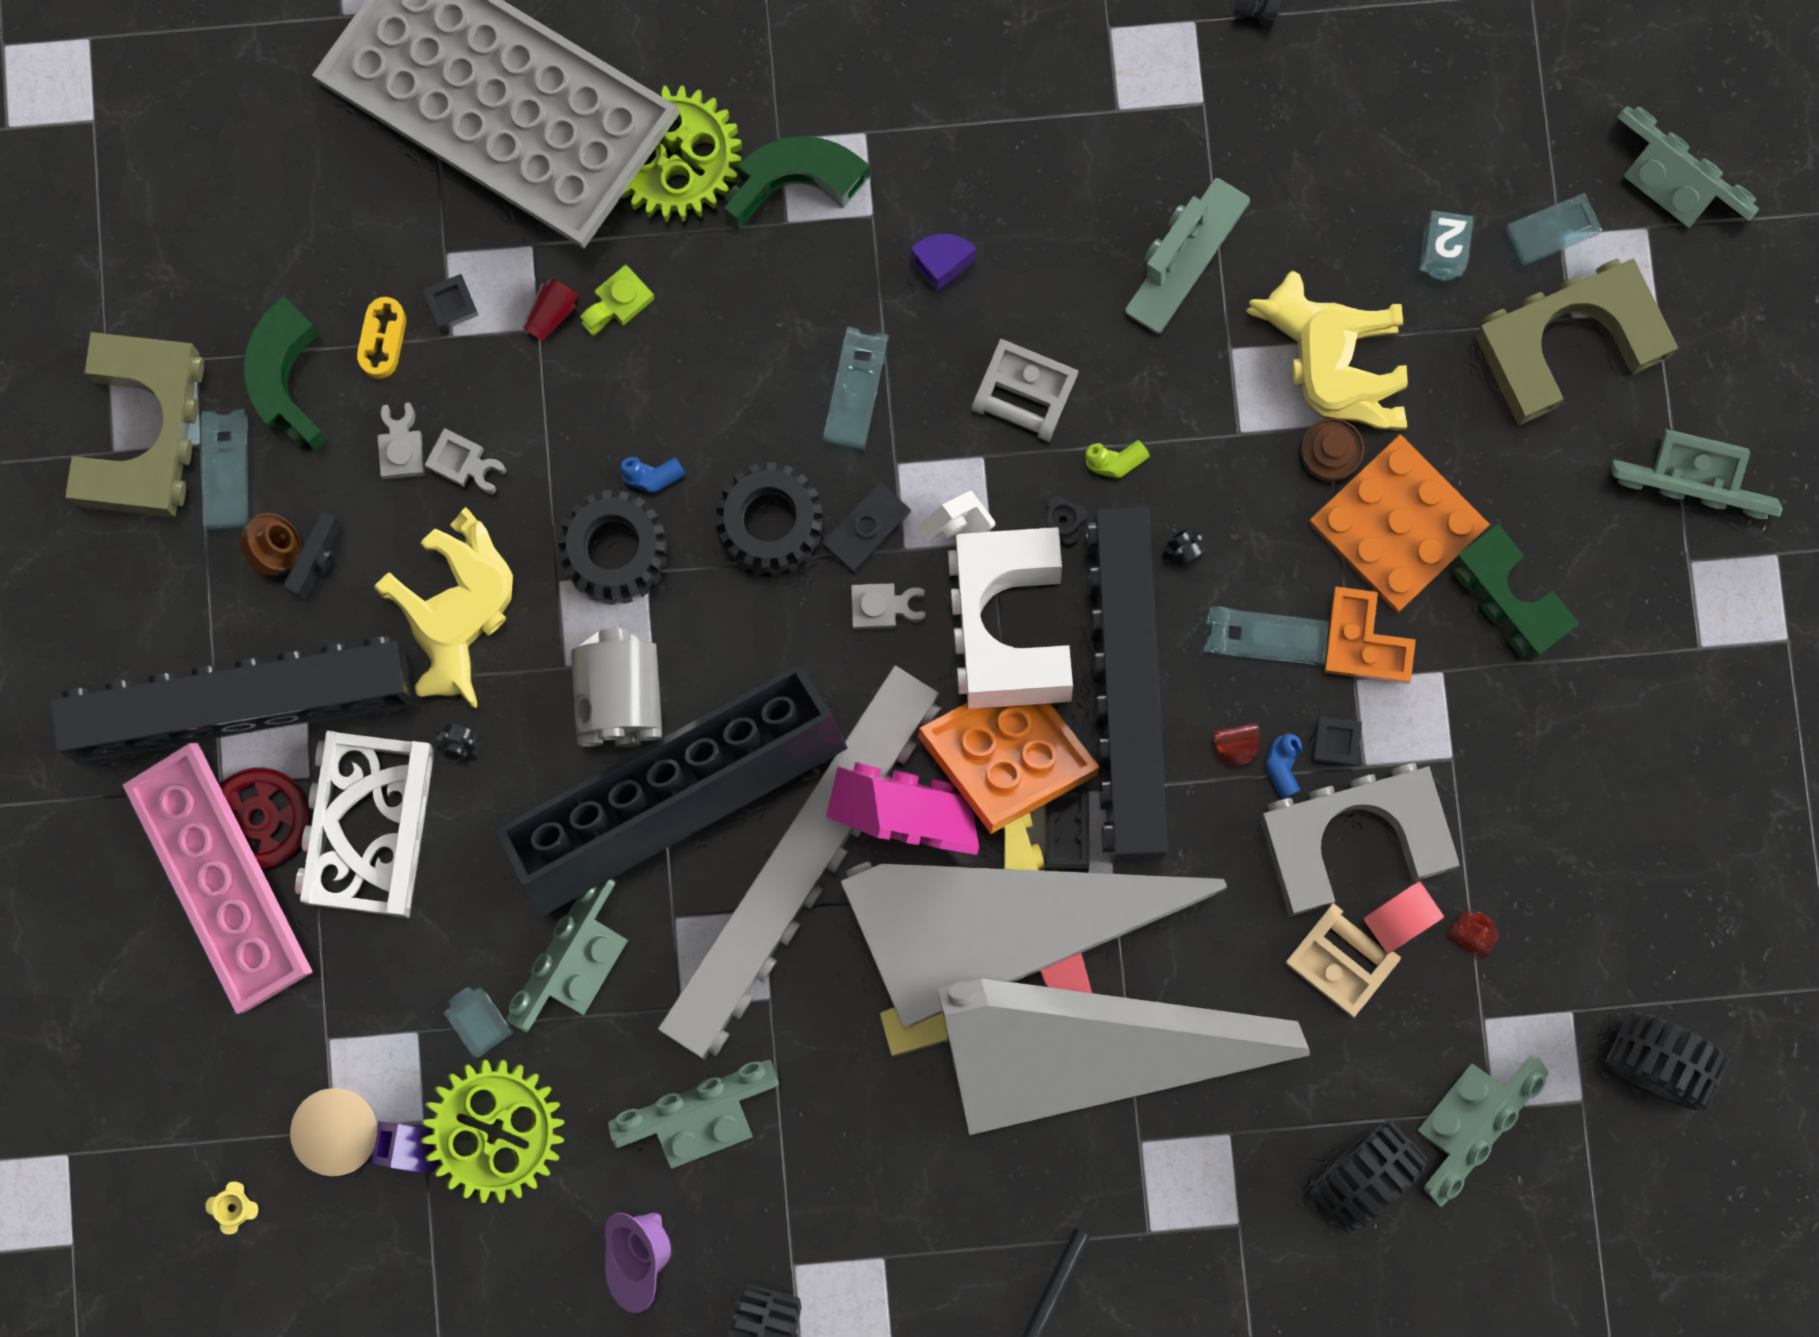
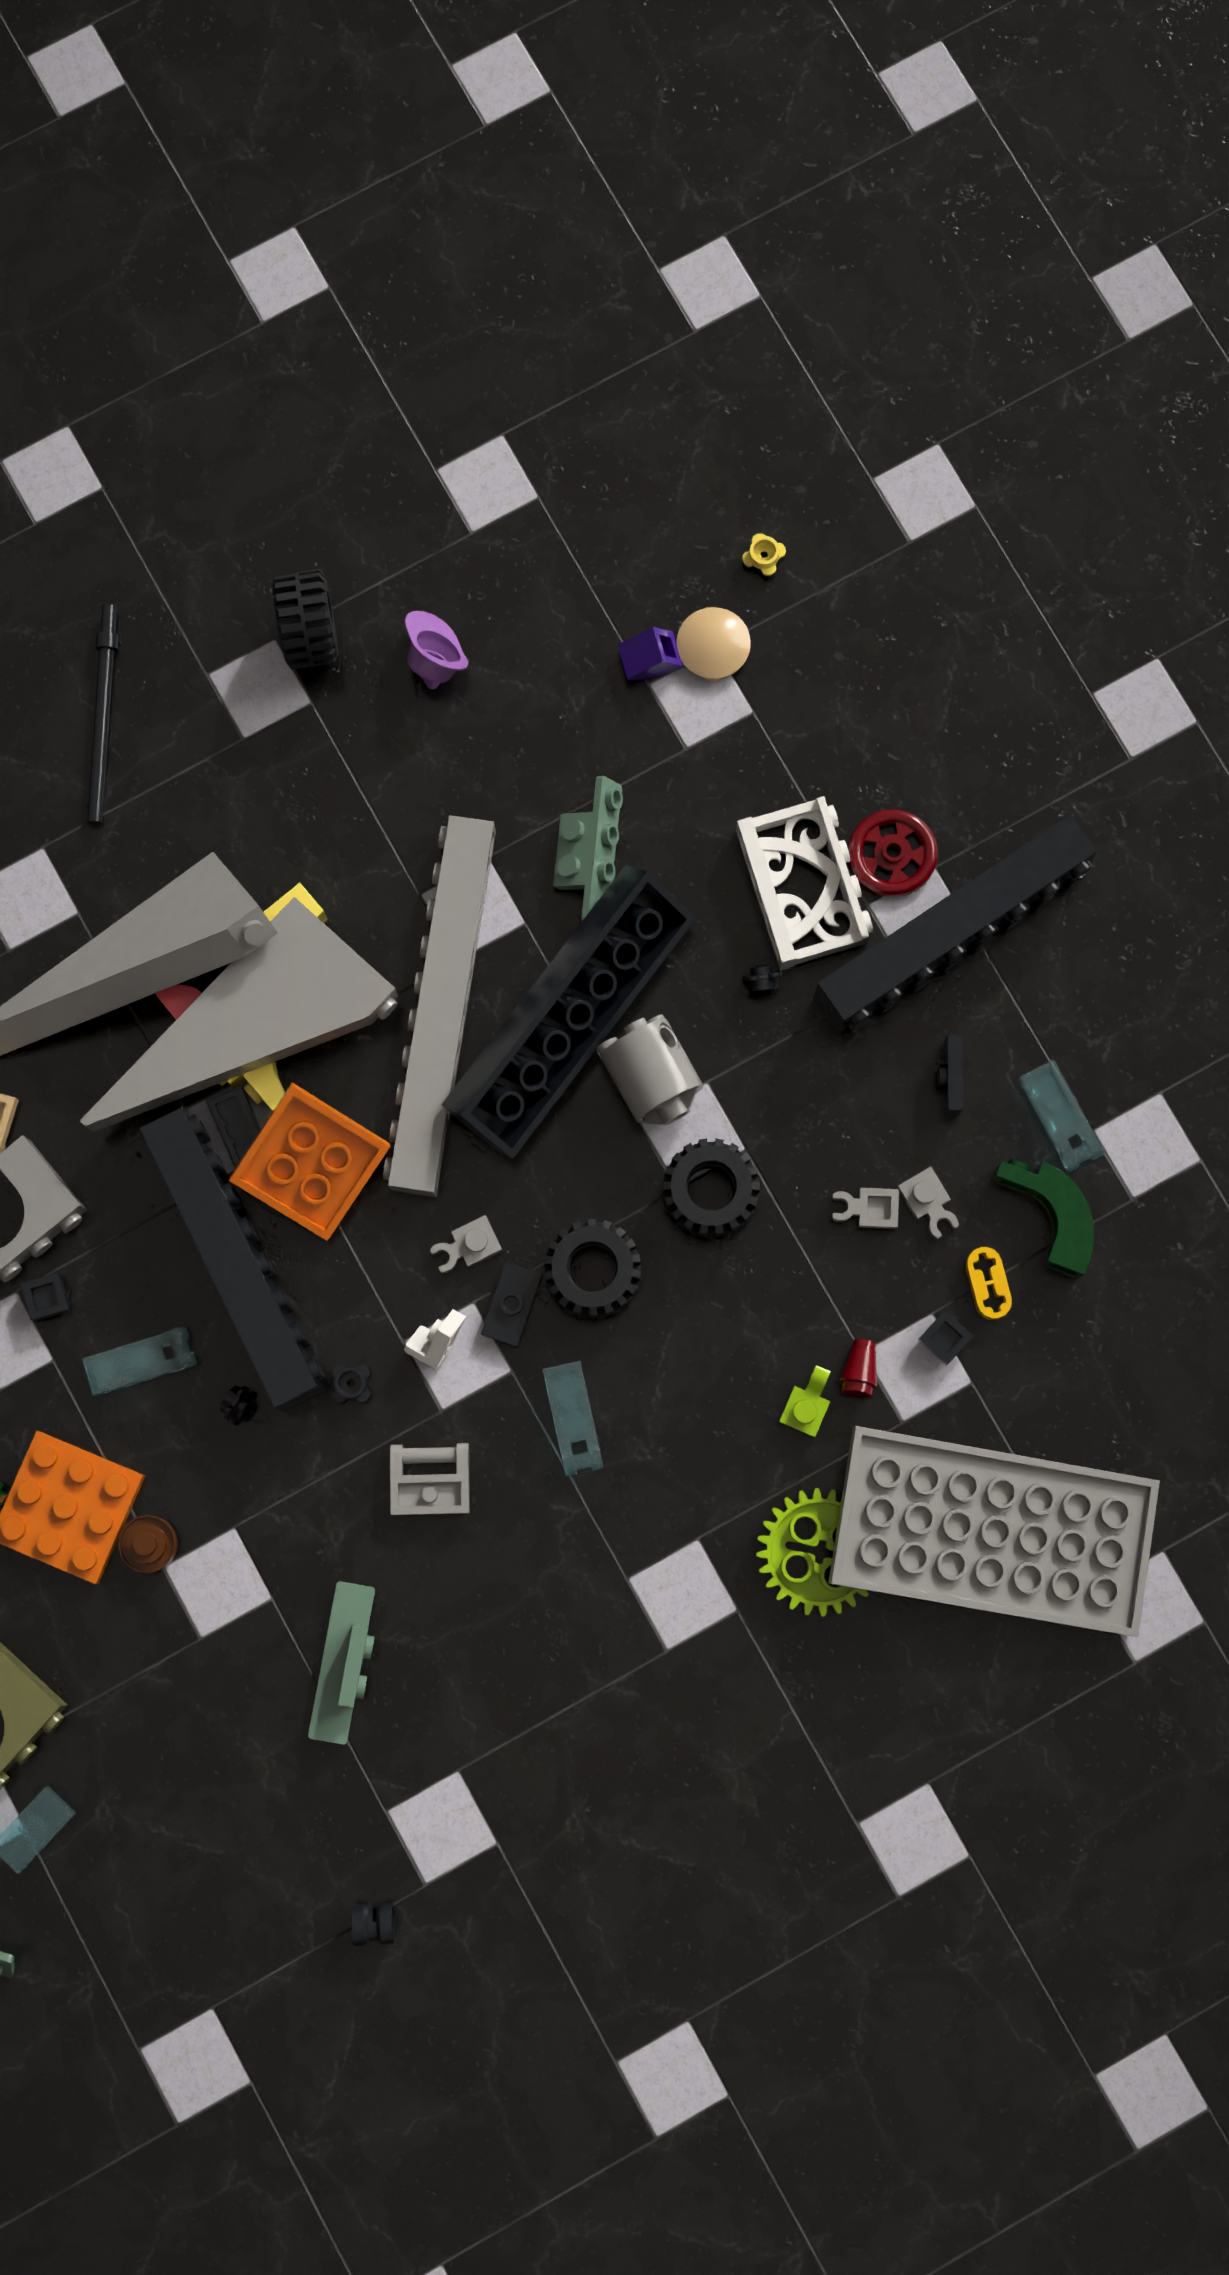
camera: 160 degrees right, 0 degrees up
(152, 480) = (1145, 1169): olive arch -> none
(217, 878) = (899, 788): bright pink plate -> none
(270, 544) = (991, 1068): reddish brown plate -> none
(460, 614) = (812, 1077): light yellow animal -> none
(477, 1020) = (641, 771): clear light blue brick -> none
(477, 1168) = (589, 660): lime gear -> none
(649, 478) = (710, 1264): blue arm -> none
(699, 1118) = (434, 776): sand green bracket -> none
(795, 161) = (703, 1597): dark green arch -> none
(903, 808) = (370, 1067): dark pink wedge -> none
(942, 257) = (549, 1562): dark purple brick -> none
(993, 671) = (352, 1219): white arch -> none
(1113, 463) = (326, 1451): lime arm -> none
(1238, 743) = (125, 1257): clear red plate -> none
(1279, 764) = (86, 1259): blue arm -> none
(1326, 346) = (186, 1628): light yellow animal -> none
(1355, 649) = (62, 1383): orange plate -> none
(1446, 244) = (120, 1770): clear light blue brick -> none

